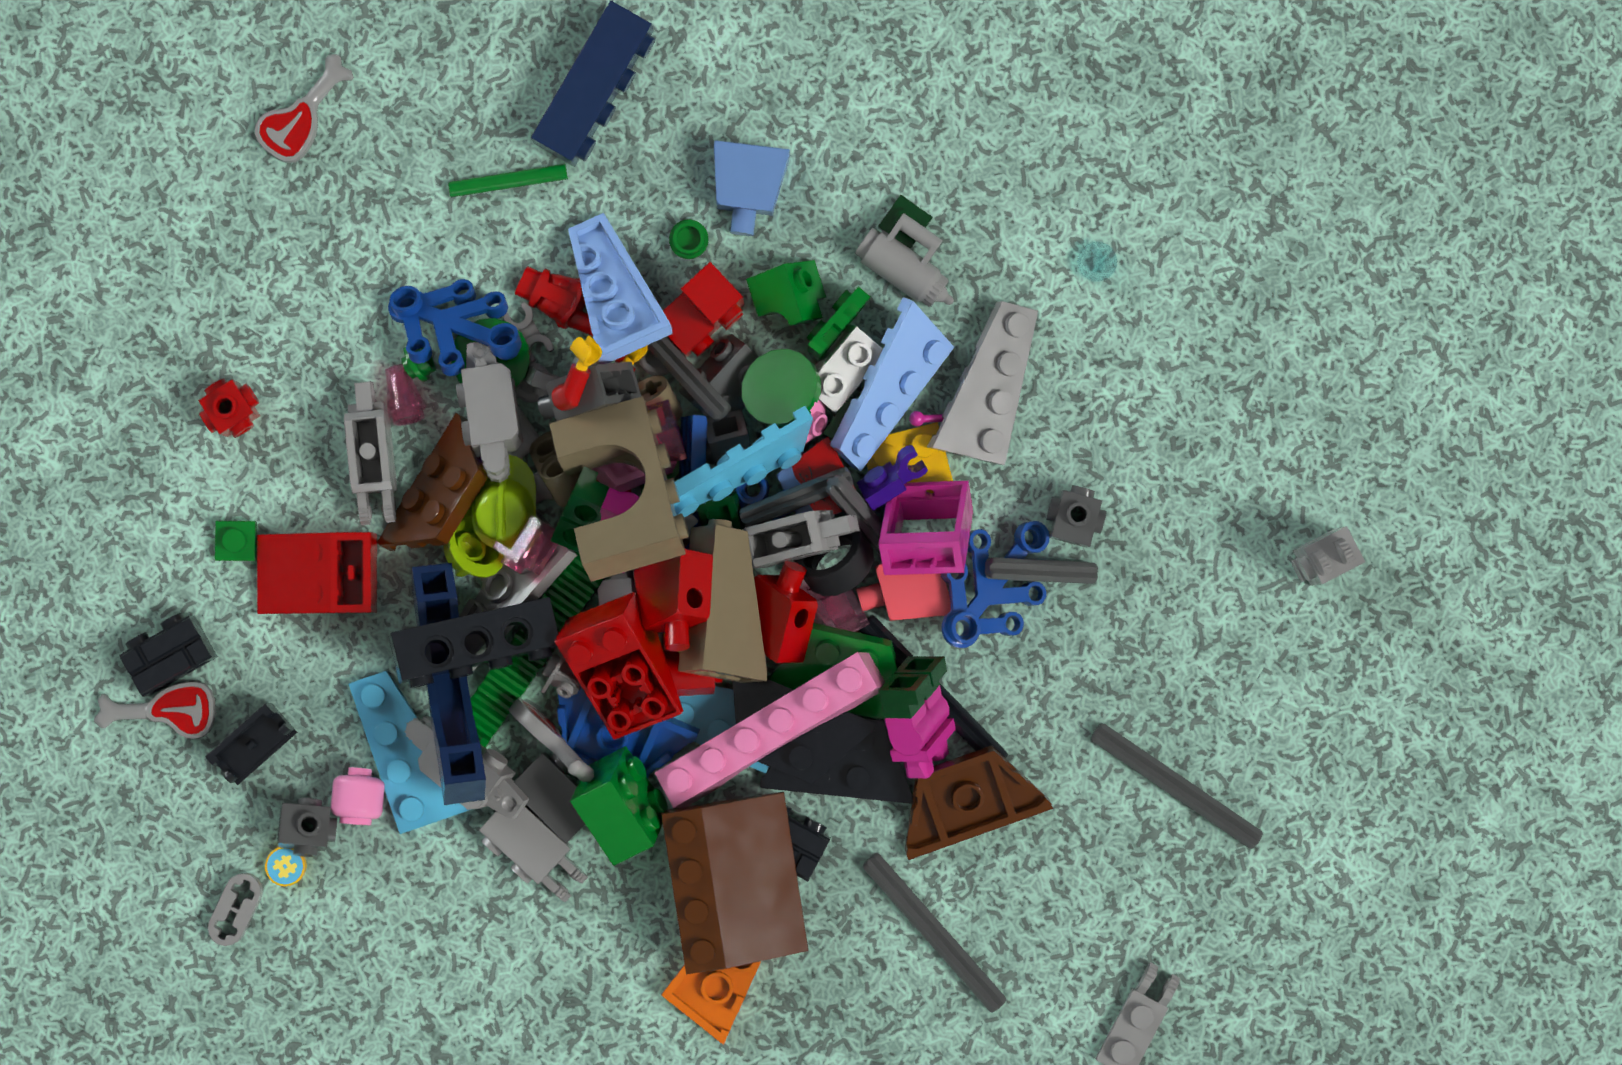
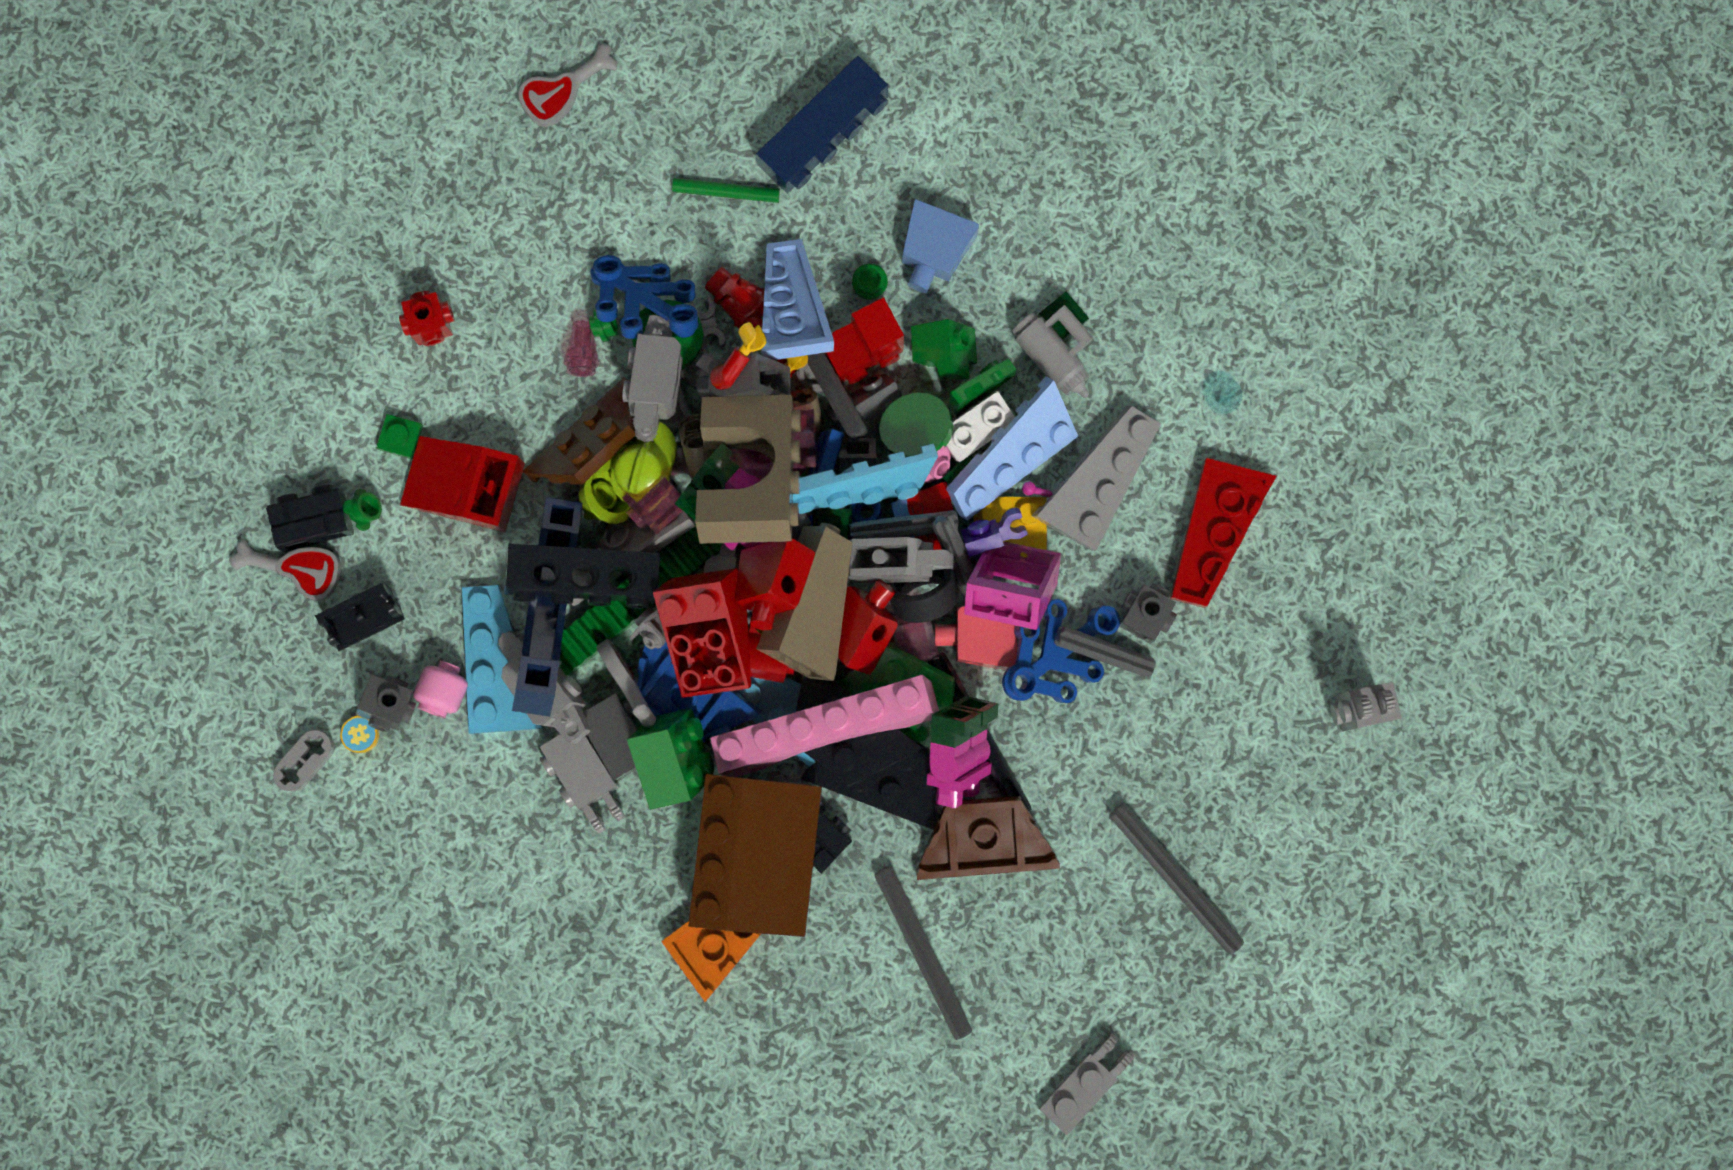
camera: 15 degrees right, 5 degrees down
(220, 629) = (363, 509): none -> green plate
(370, 452) = (538, 390): light grey hinge -> none
(1125, 404) = (1218, 522): none -> red wing

